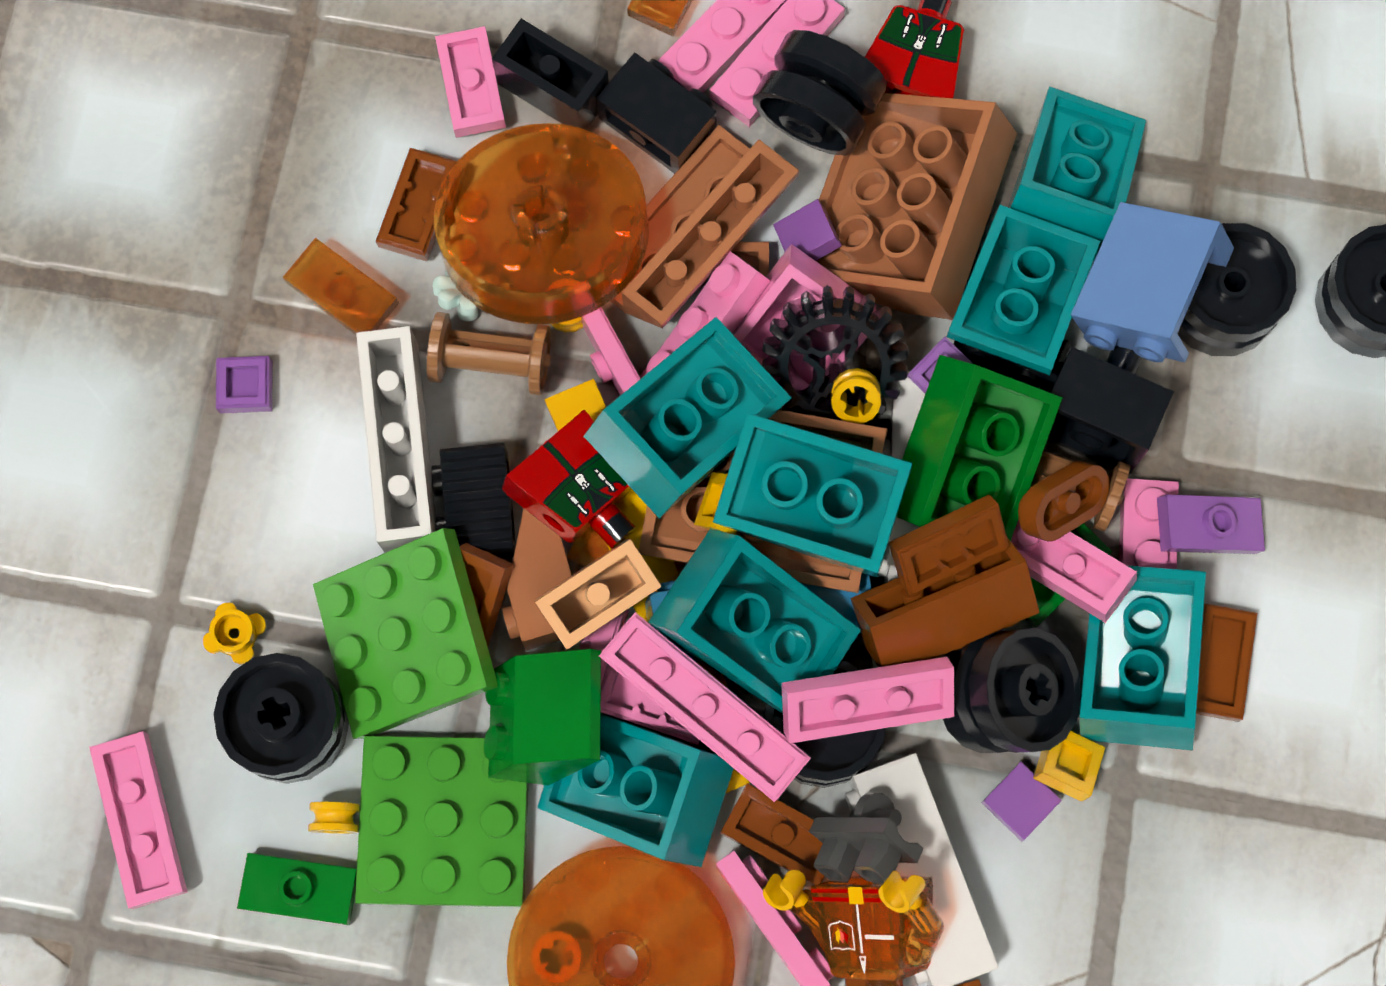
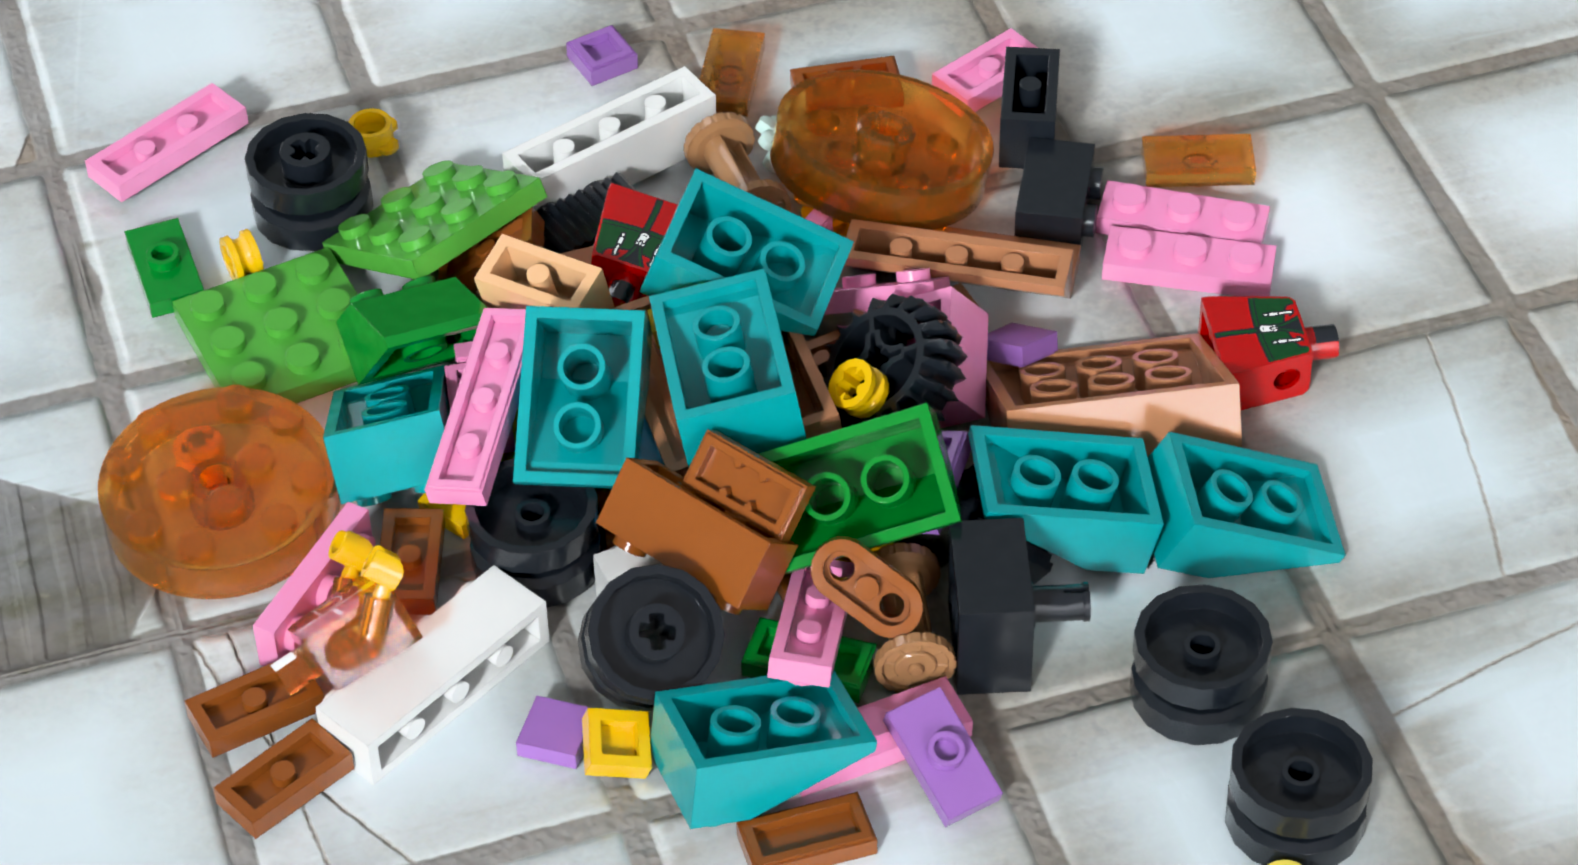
camera: 60 degrees right, 30 degrees down
(820, 92) = (1154, 276): black wheel -> none
(863, 842) = (440, 579): dark grey hips -> none
(868, 699) = (563, 505): bright pink plate -> none
(1147, 280) = (1138, 536): medium blue panel -> none

